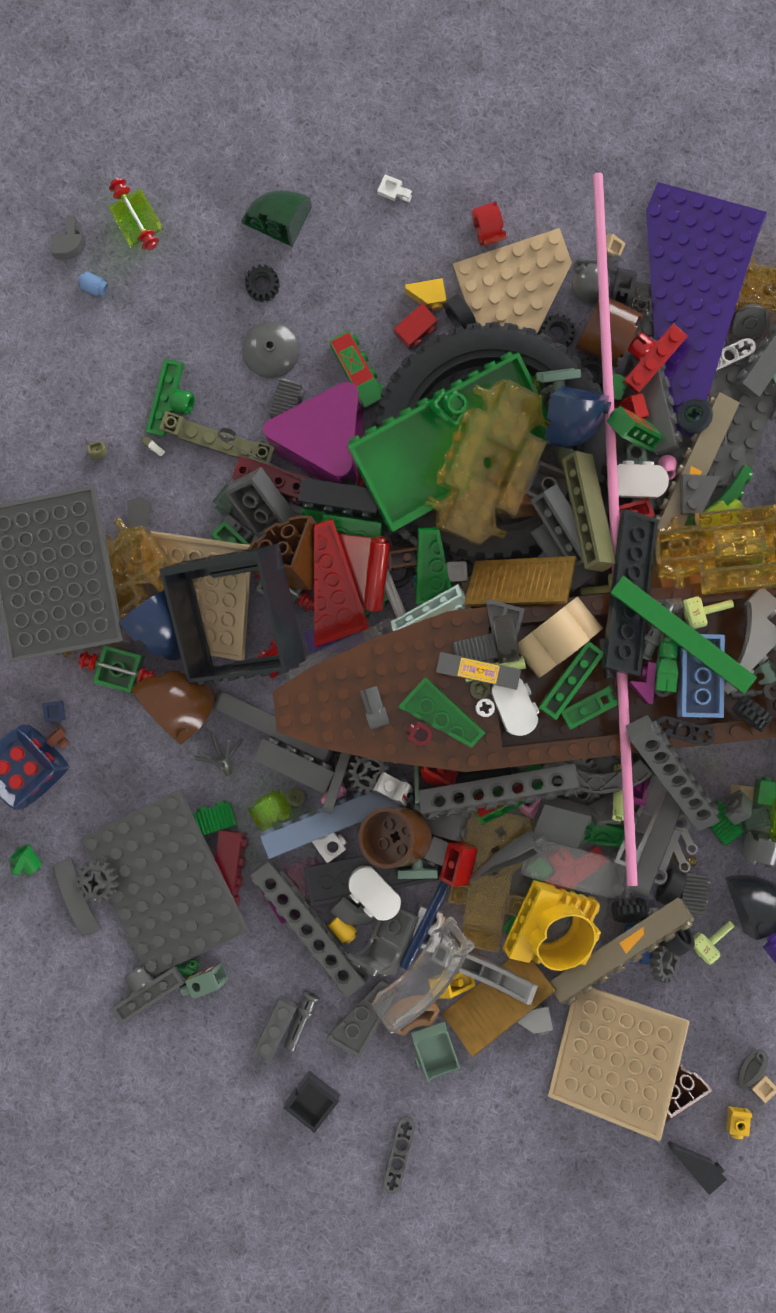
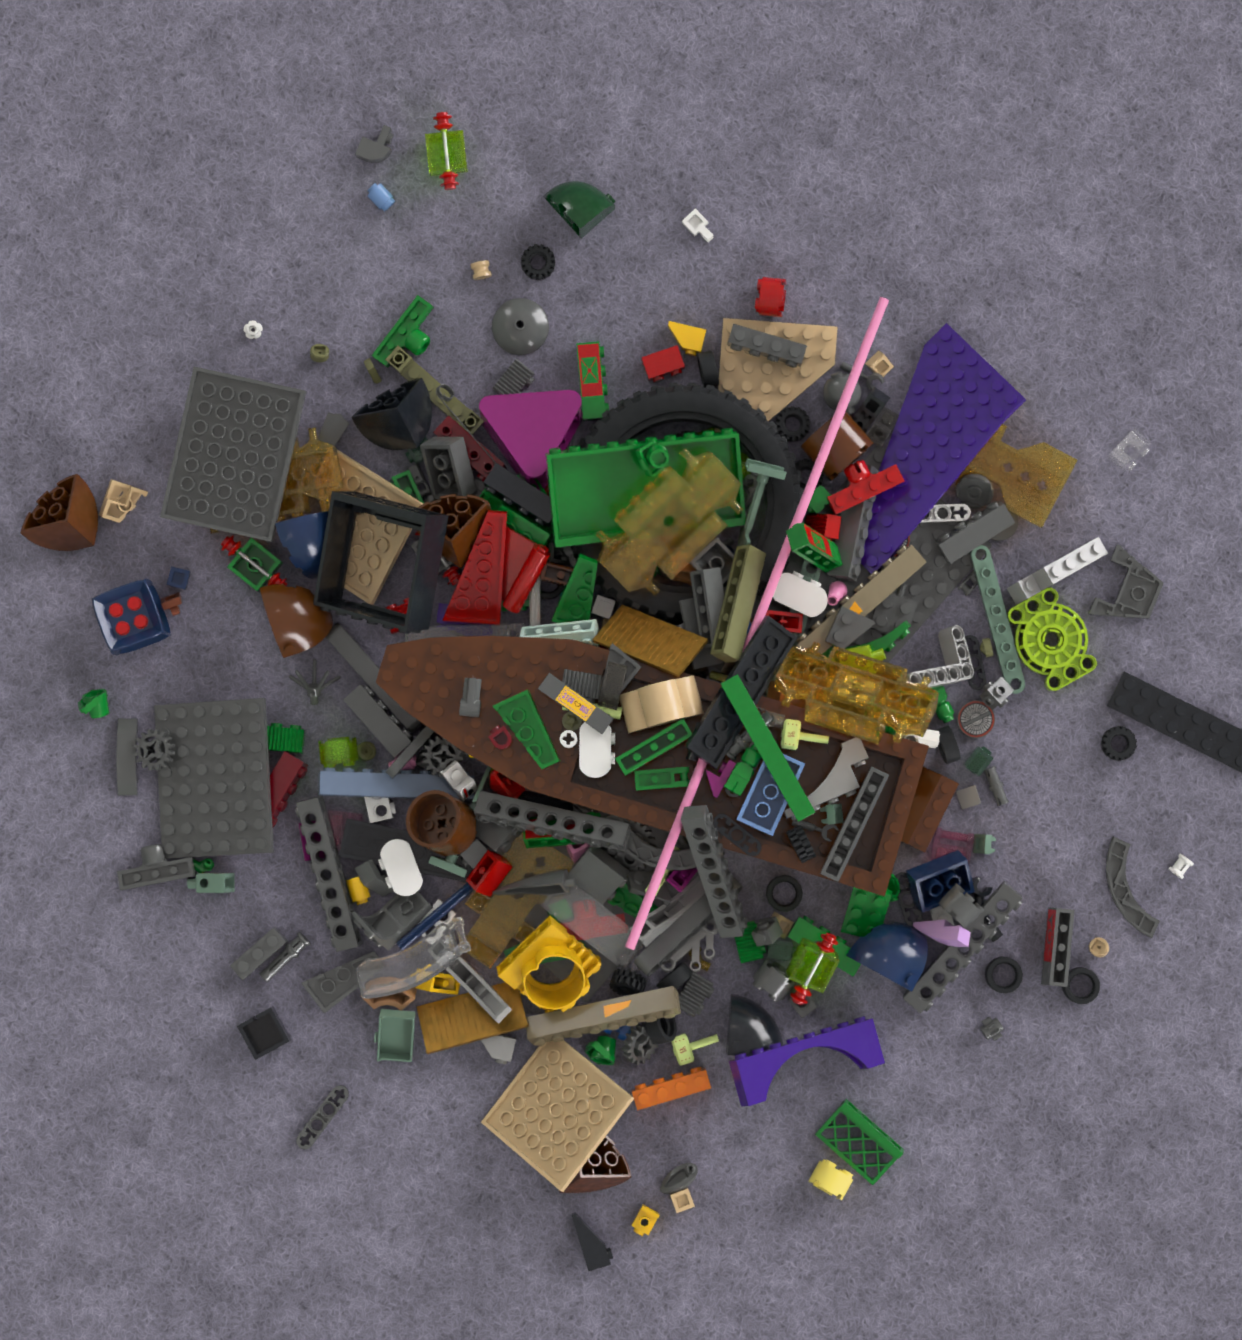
camera: 25 degrees right, 0 degrees up
(27, 459) = (253, 324): none -> white plate
(193, 478) = (398, 417): none -> black brick
(213, 312) = (481, 270): none -> tan wheel
(504, 268) = (767, 345): none -> dark grey brick
(575, 416) = (762, 512): dark blue brick -> none
(631, 981) = (602, 1050): none -> green piece
(701, 421) = (875, 550): black bush -> none
(711, 989) = (671, 1089): none -> orange brick
(750, 764) = (798, 896): none -> black tyre

